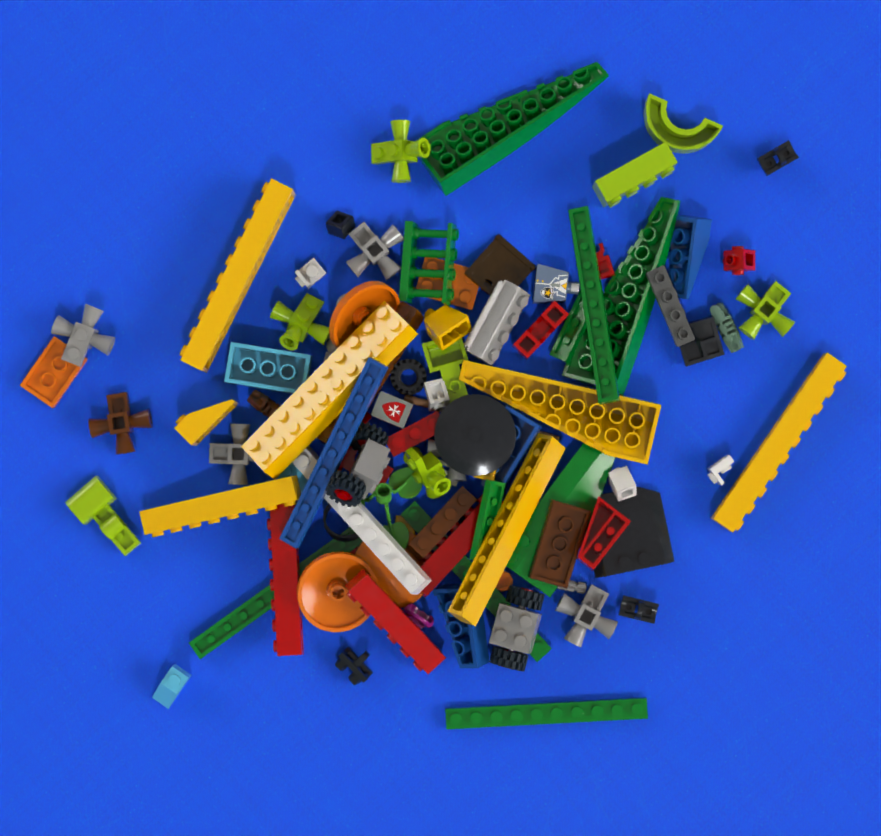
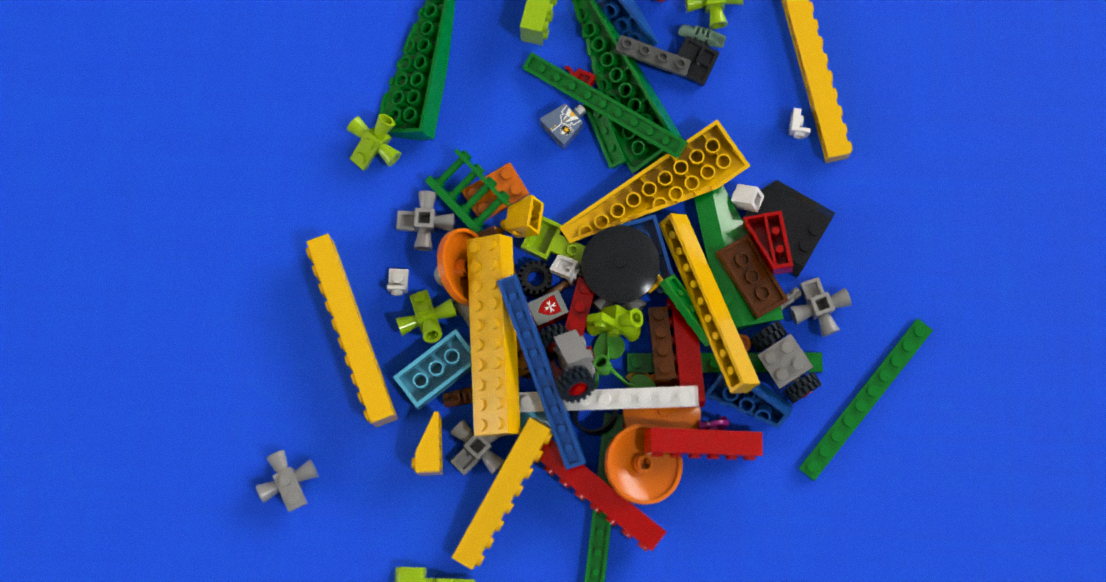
camera: 45 degrees left, 10 degrees down
(50, 374) = (292, 531): orange plate -> none
(120, 422) = (375, 512): reddish brown brick -> none
(340, 224) = (384, 229): black slope -> none
(356, 664) = (717, 504): black hips -> none
(496, 321) = (553, 180): light grey container -> none
(499, 263) = (518, 146): dark brown container -> none
(540, 330) = (587, 158): red arch -> none
(646, 609) = (855, 263): black hips -> none

